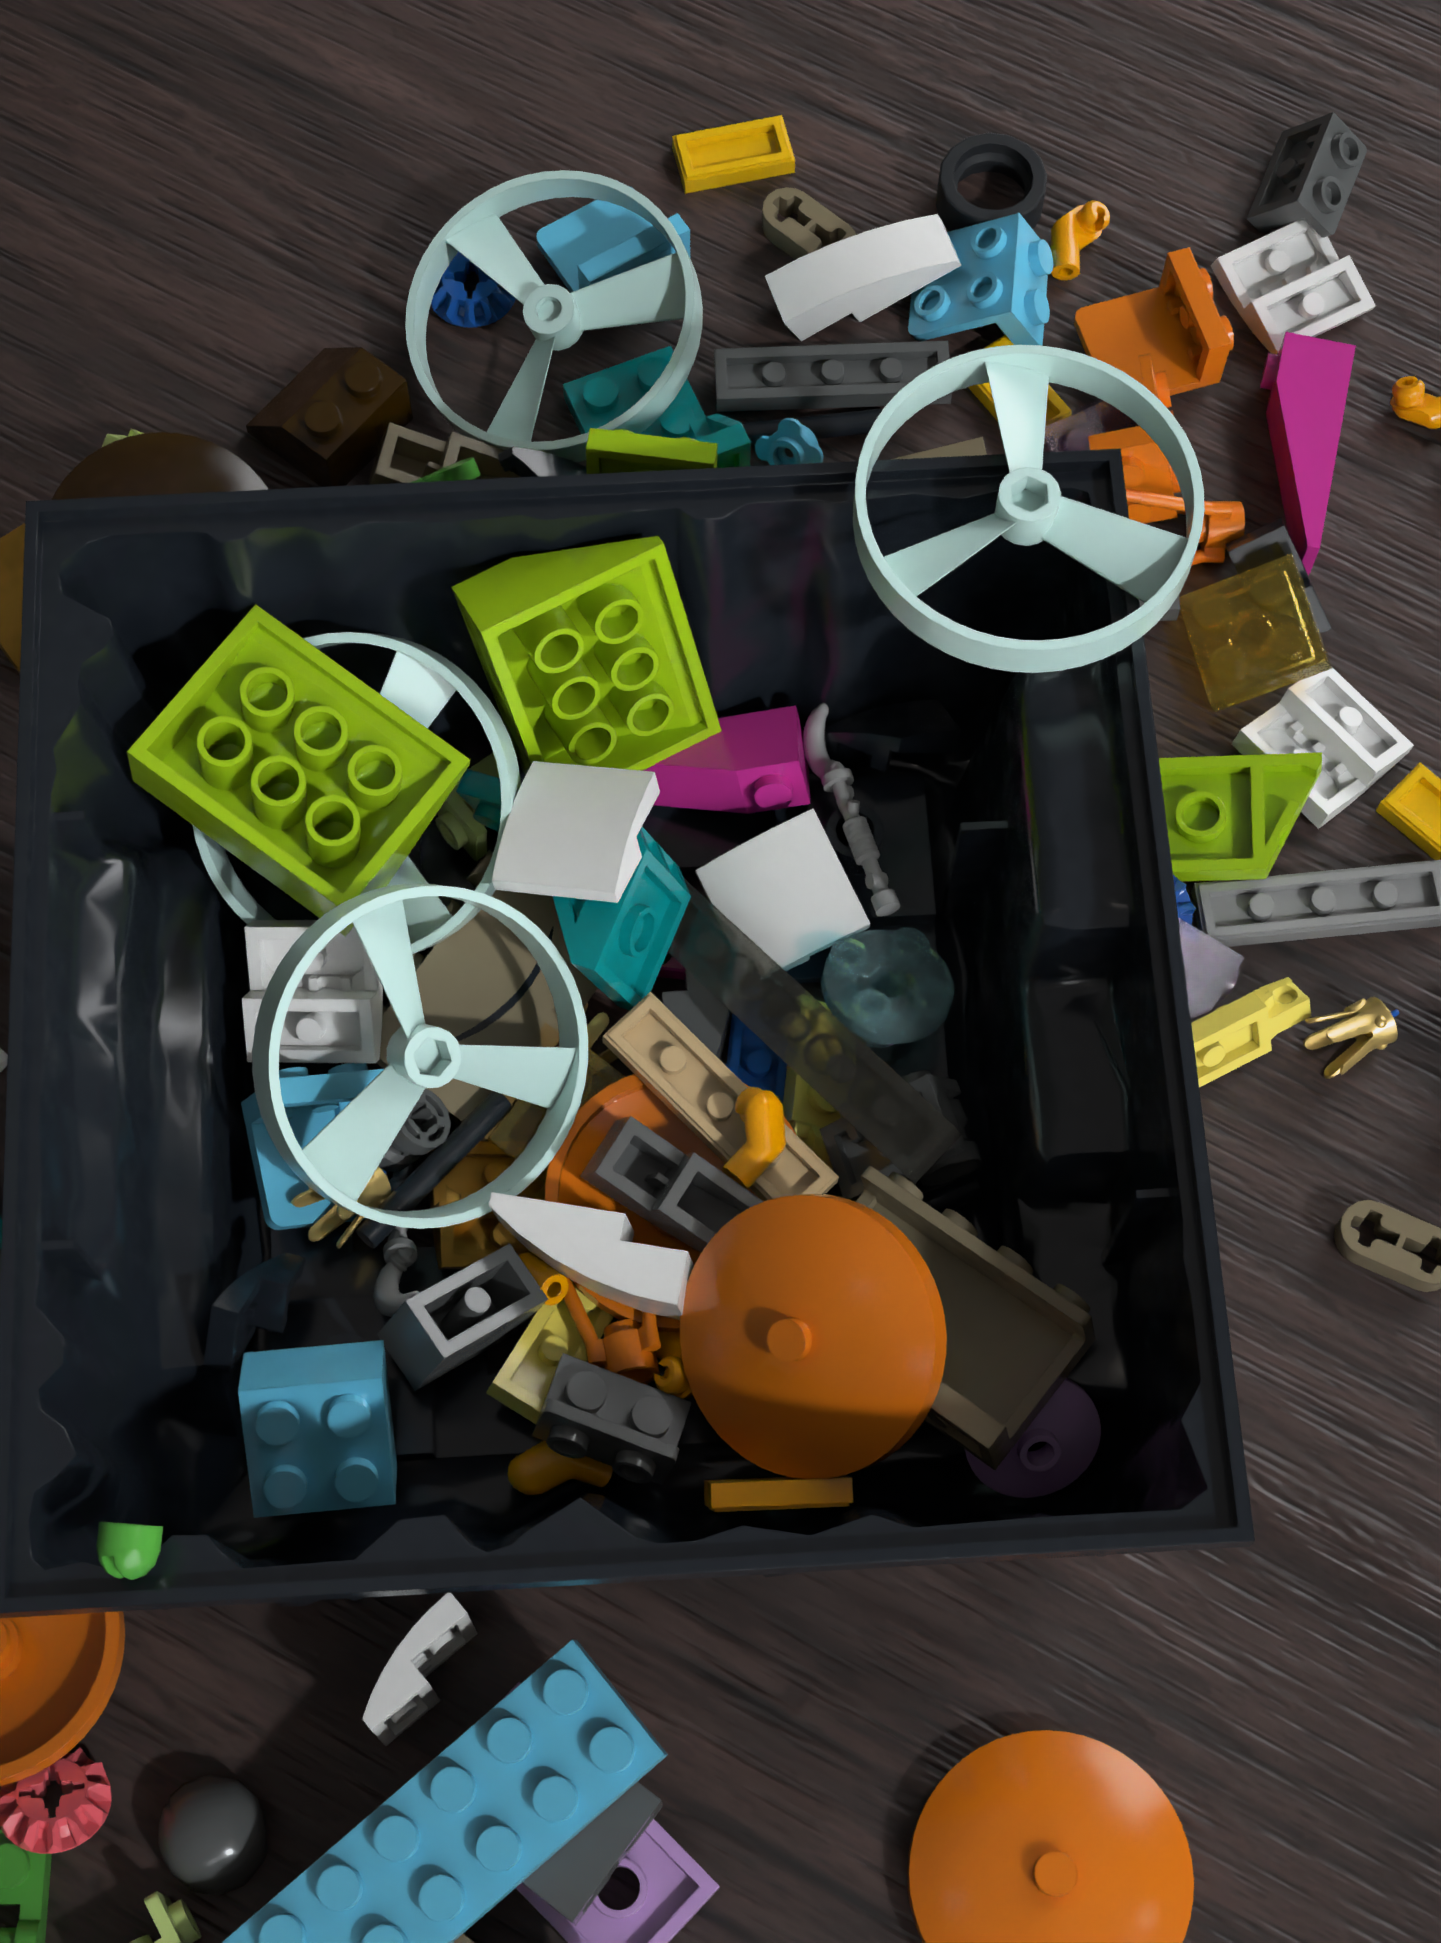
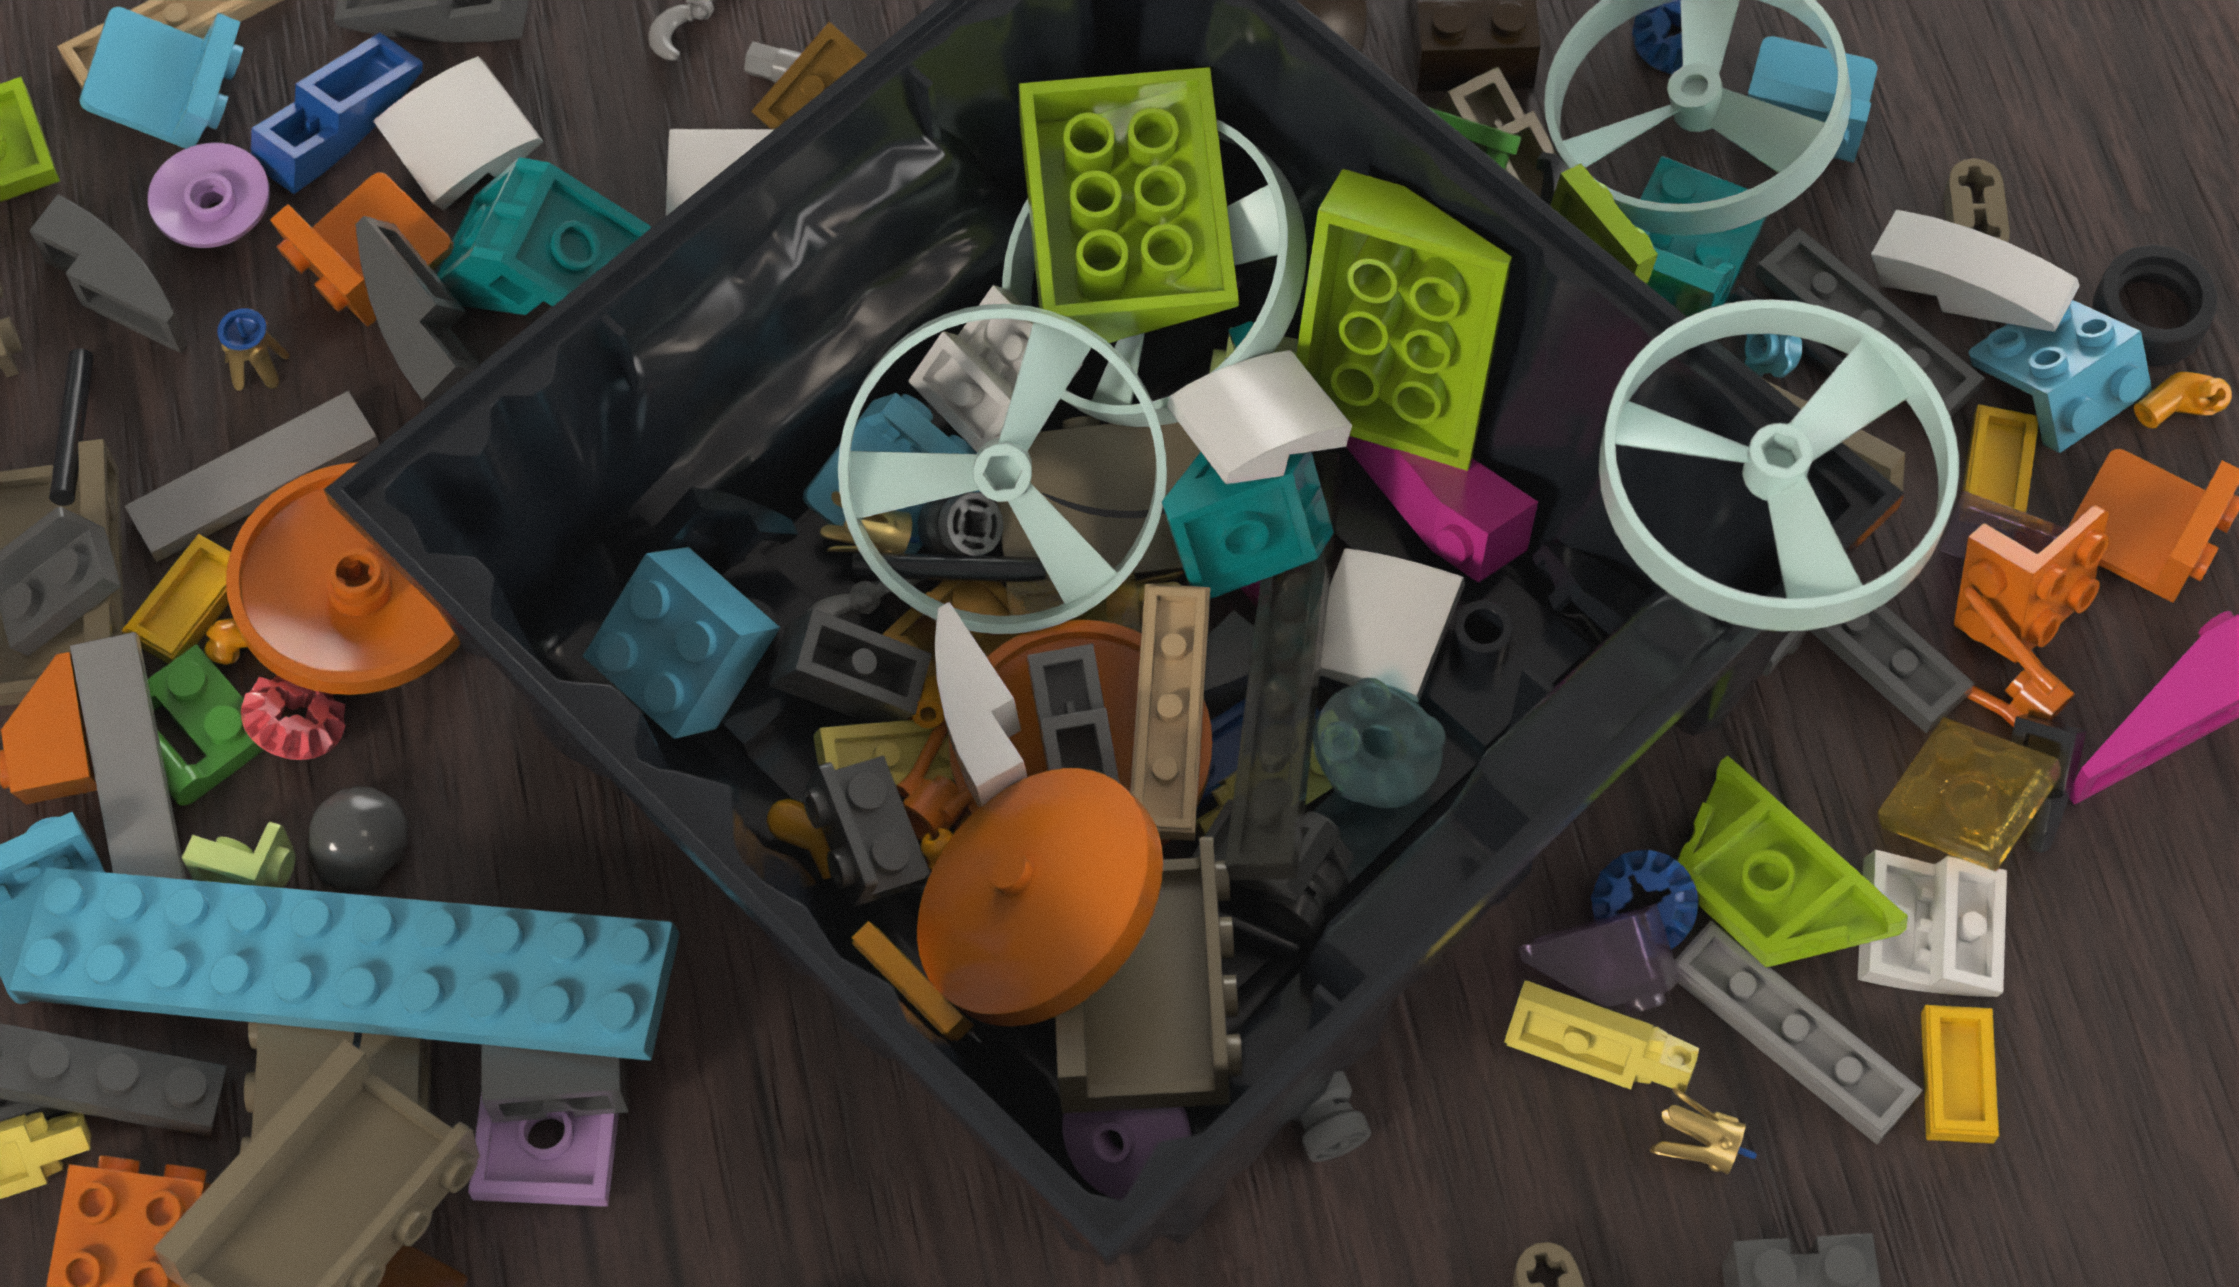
camera: 50 degrees right, 5 degrees down
(128, 1548) = (434, 528): bright green hinge -> none
(402, 1691) = (563, 858): white slope -> none
(733, 154) = (1986, 110): yellow tile -> none
(765, 1135) = (1170, 749): light orange arm -> none
(838, 779) = (1509, 581): light grey piece -> none

